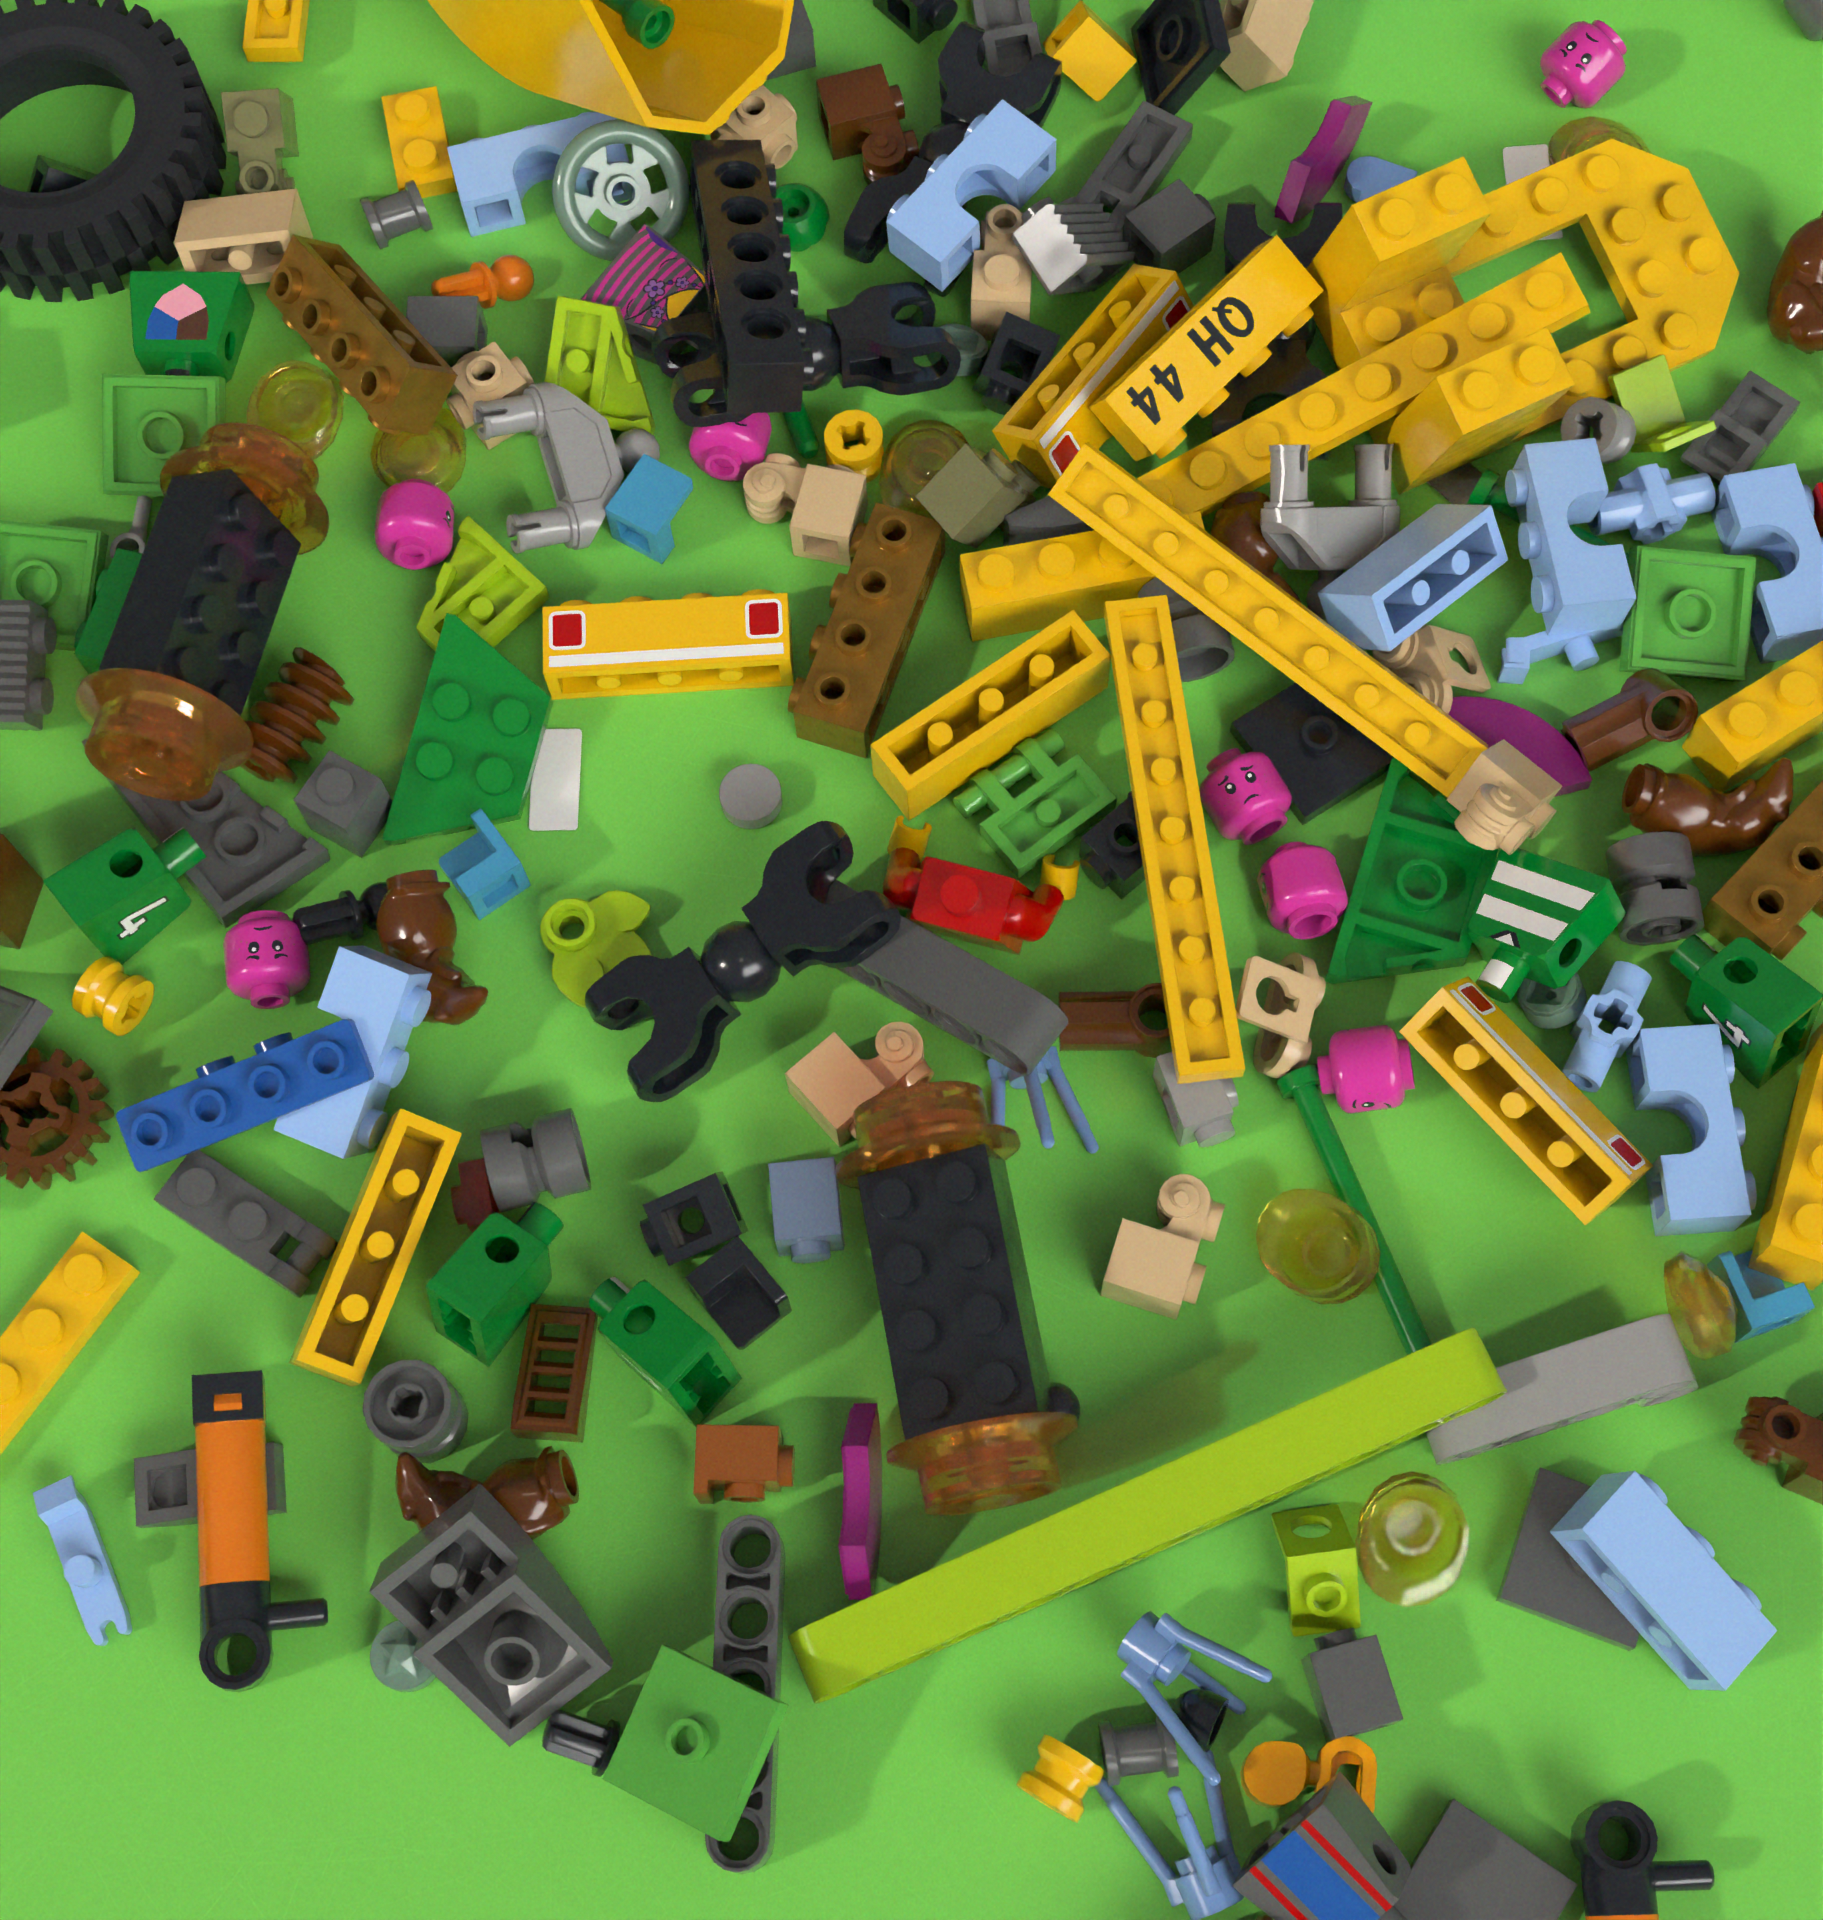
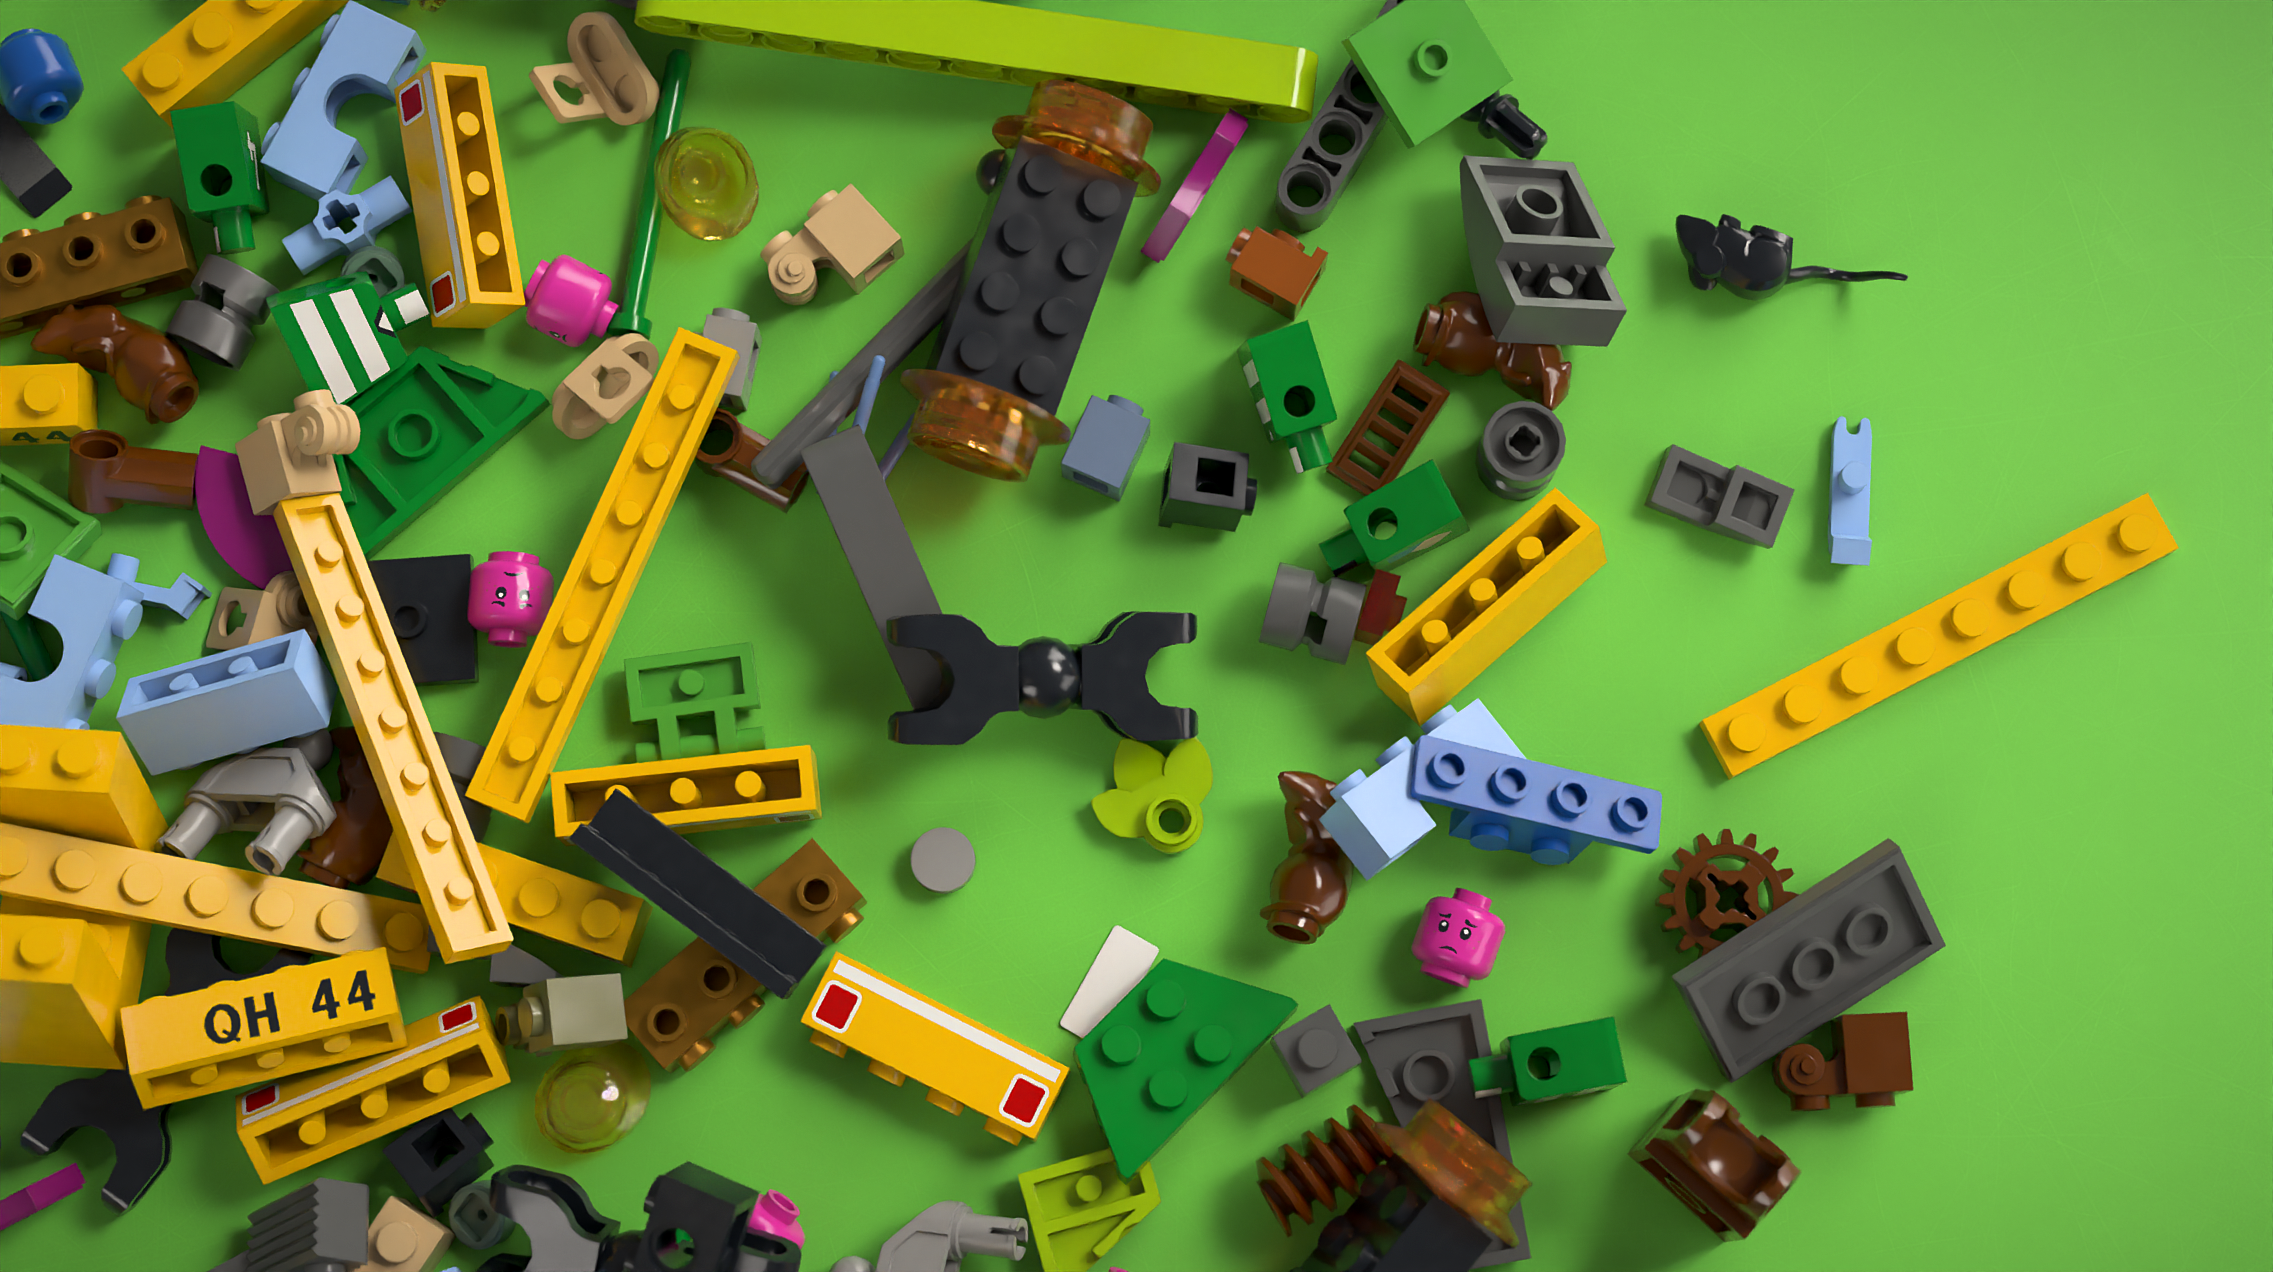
camera: 155 degrees left, 10 degrees up
(113, 996) = (1612, 982): yellow wheel -> none
(234, 1527) = (1678, 523): piece -> none
(245, 1221) = (1586, 706): dark grey plate -> none
(277, 1735) = (1752, 261): none -> black animal
(341, 915) = (1365, 946): black axle -> none
(394, 1659) = (1630, 271): sand green tile -> none
(484, 868) = (1222, 924): dark azure panel -> none
(646, 505) = (871, 1204): dark azure panel -> none
(739, 1293) = (1202, 409): black panel -> none
(822, 499) = (708, 1111): tan brick -> none
(835, 1081) = (1012, 524): tan brick -> none
(861, 458) = (646, 1162): yellow wheel -> none
(922, 620) = (700, 894): none -> black fence
(972, 901) = (816, 630): red torso -> none
(1058, 1163) = (844, 391): none -> dark grey axle
(1107, 861) = (662, 627): black brick -> none
(1170, 229) = (196, 1222): dark grey brick -> none
(1302, 890) = (518, 485): dark pink head -> none
(1476, 1296) = (605, 71): none -> tan bracket

